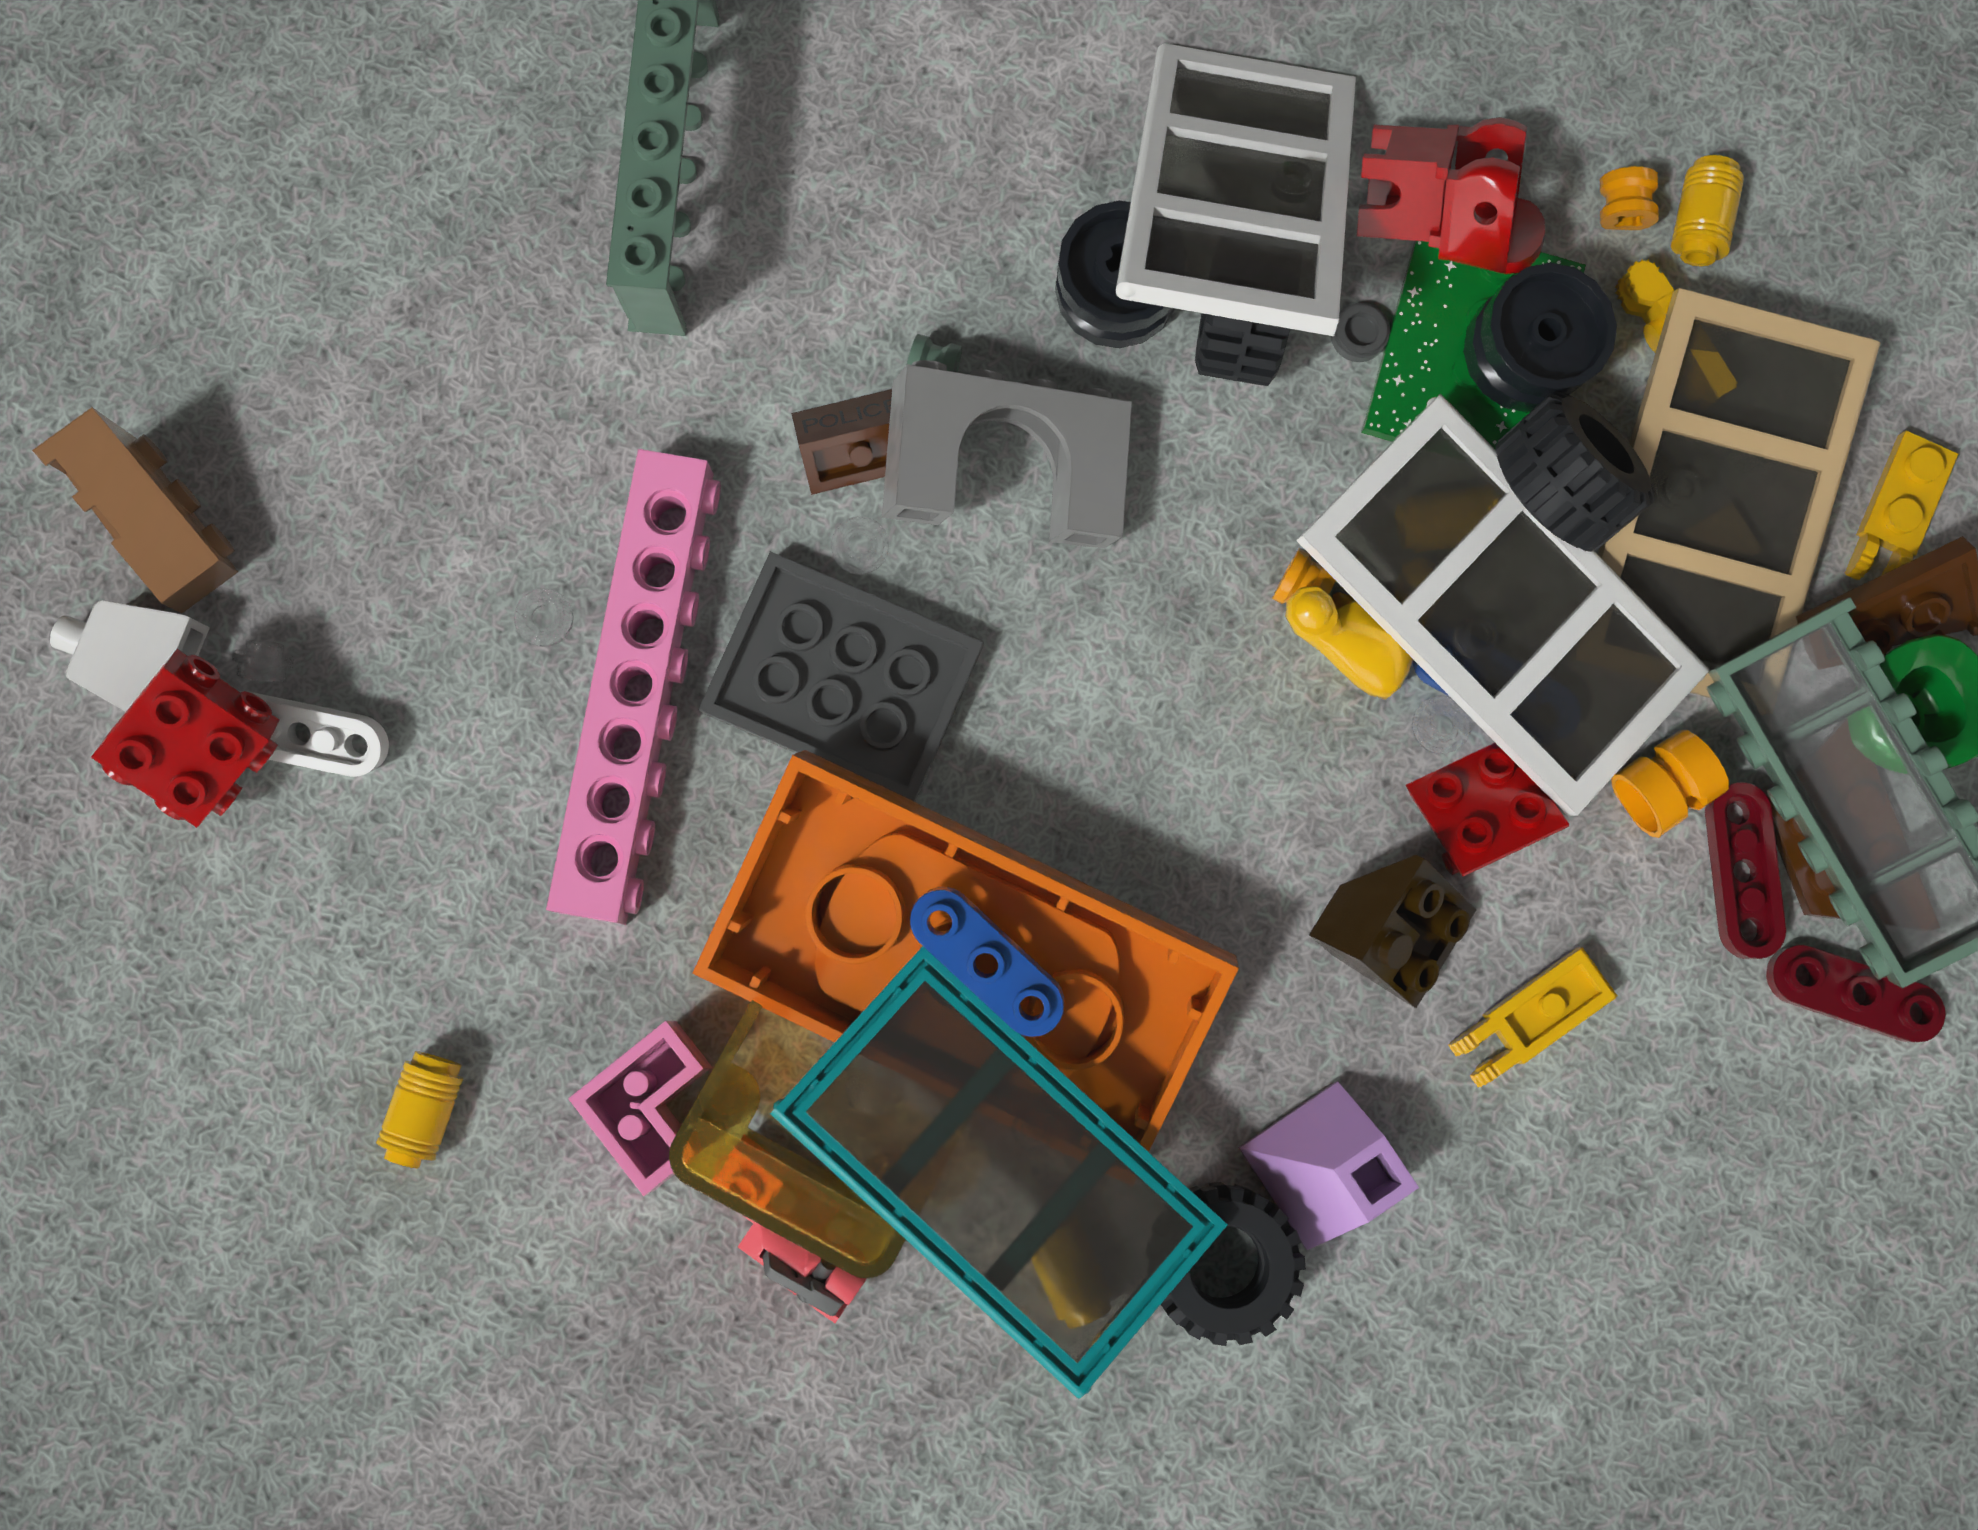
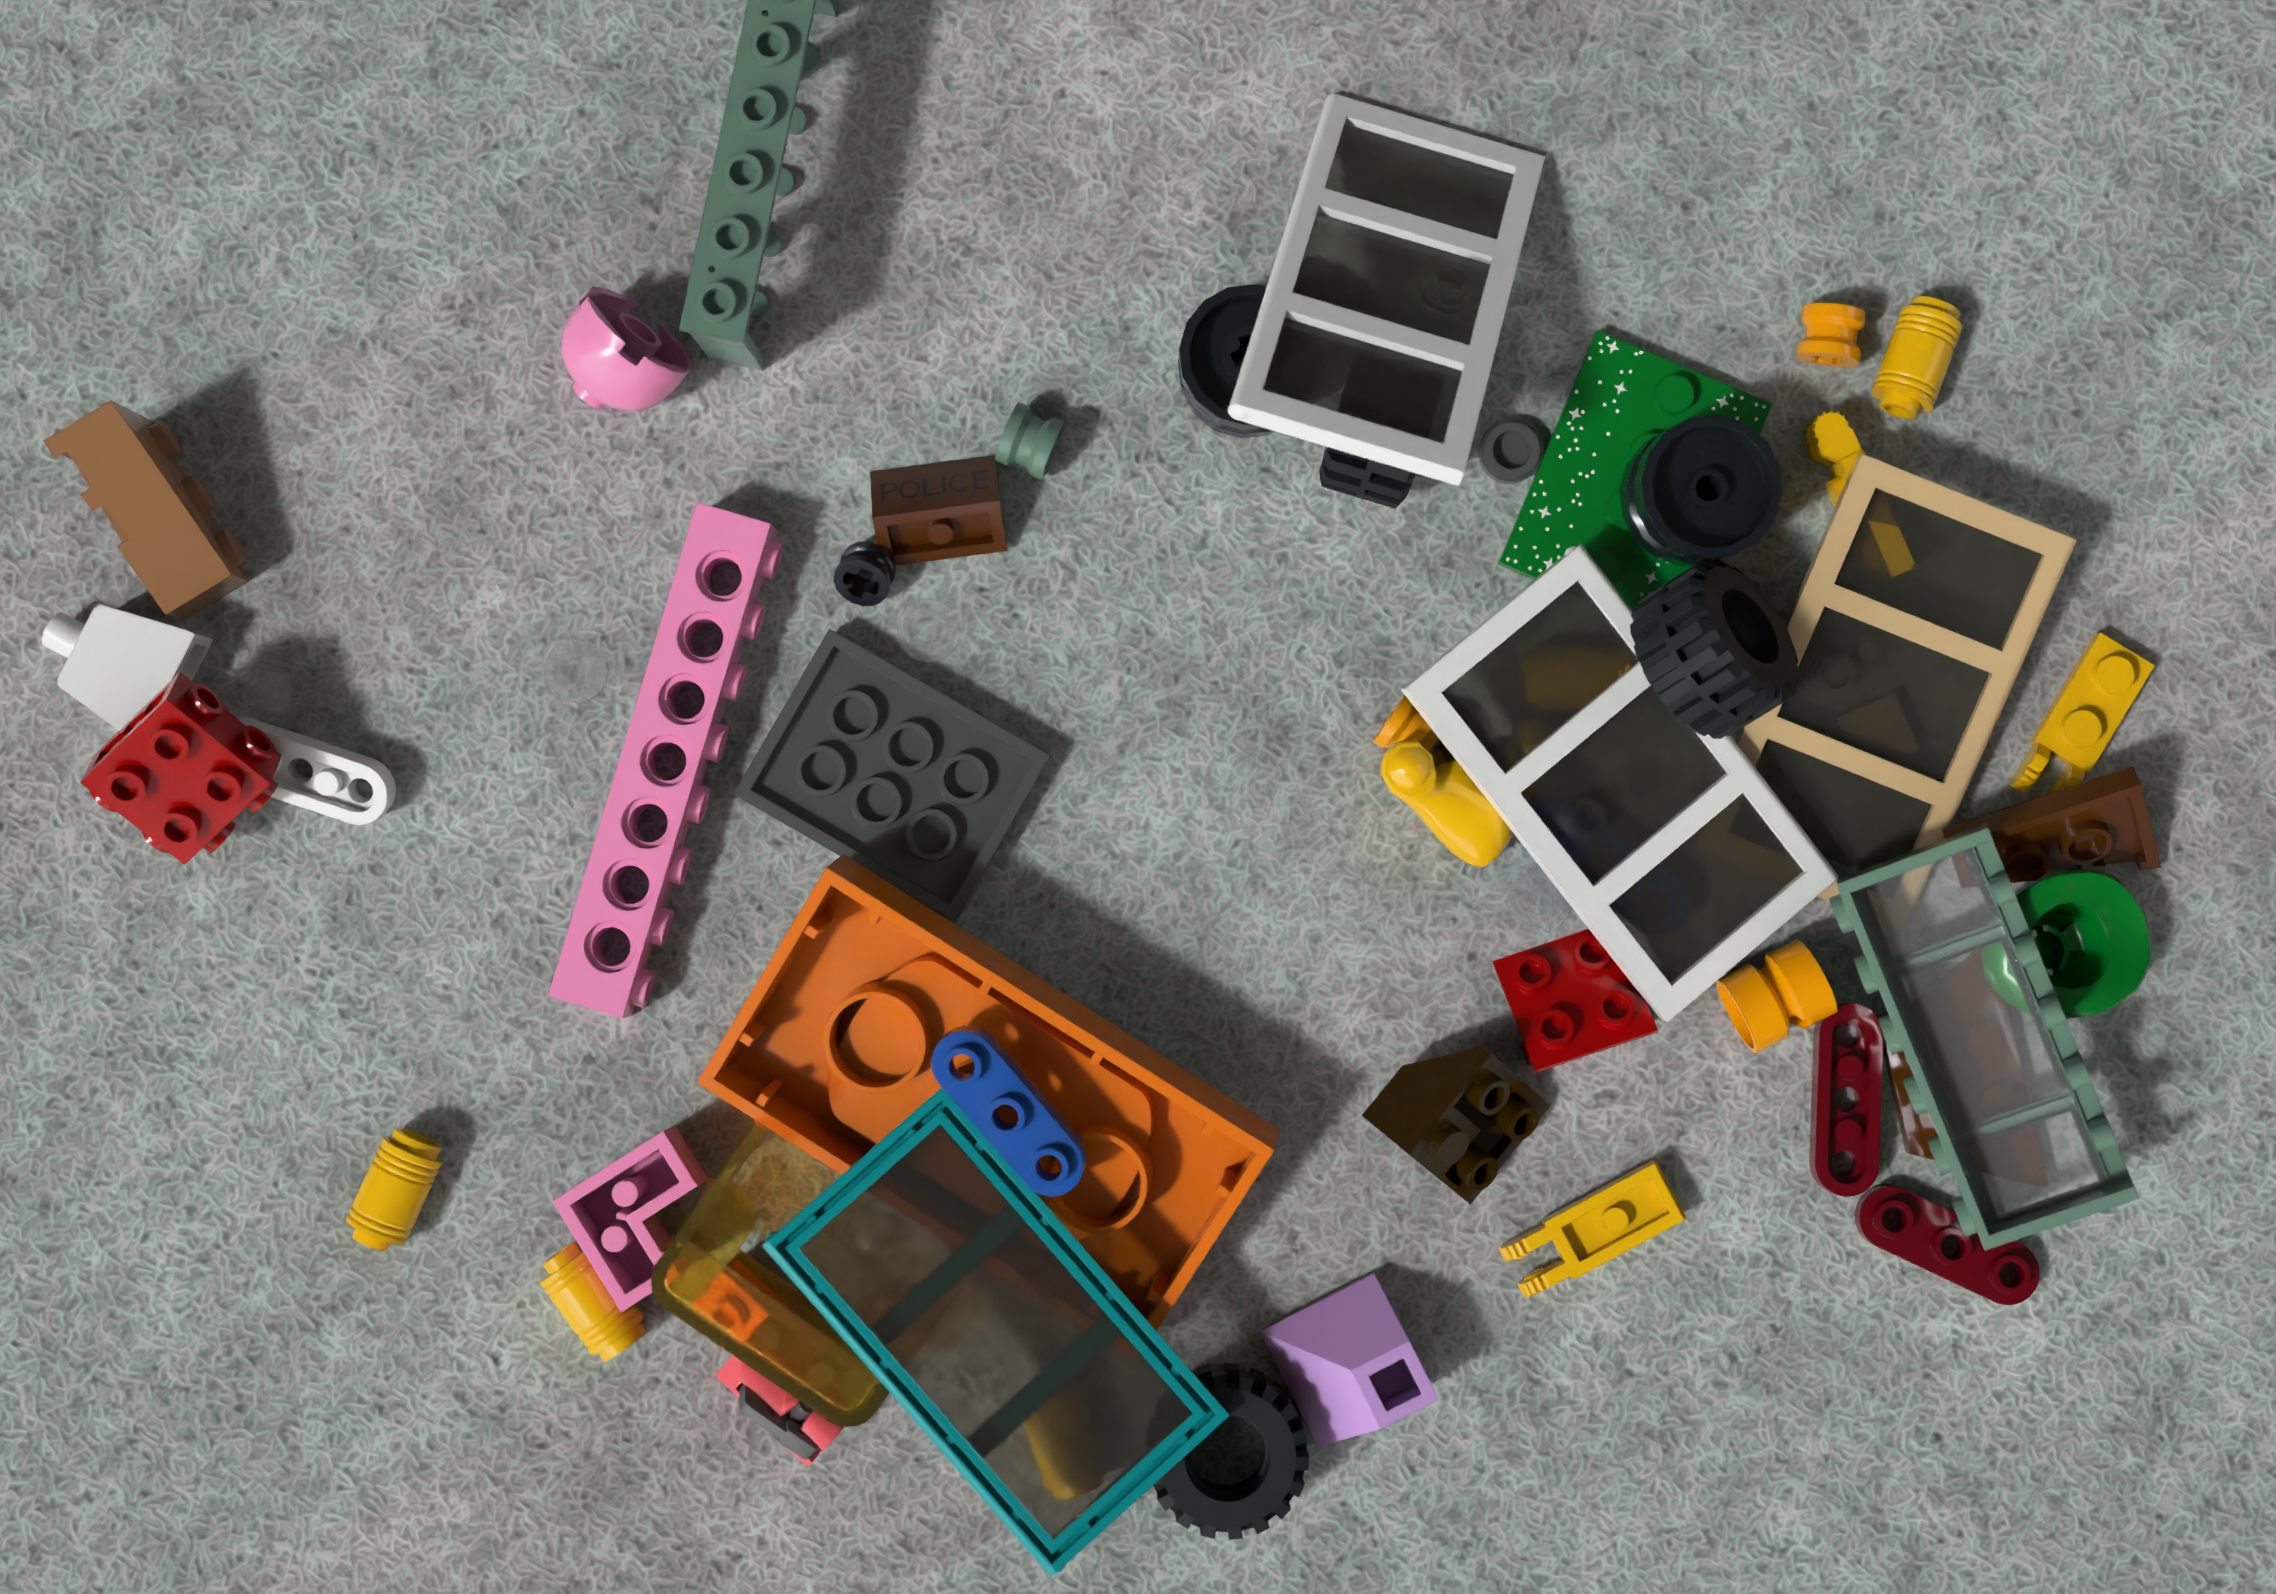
camera: 10 degrees right, 5 degrees up
(554, 331) = (615, 357): none -> bright pink cylinder
(613, 1196) = (588, 1305): none -> yellow head
(791, 516) = (859, 589): none -> black bush
(1079, 432) = (1185, 539): light grey arch -> none
(1462, 210) = (1648, 351): red piece -> none

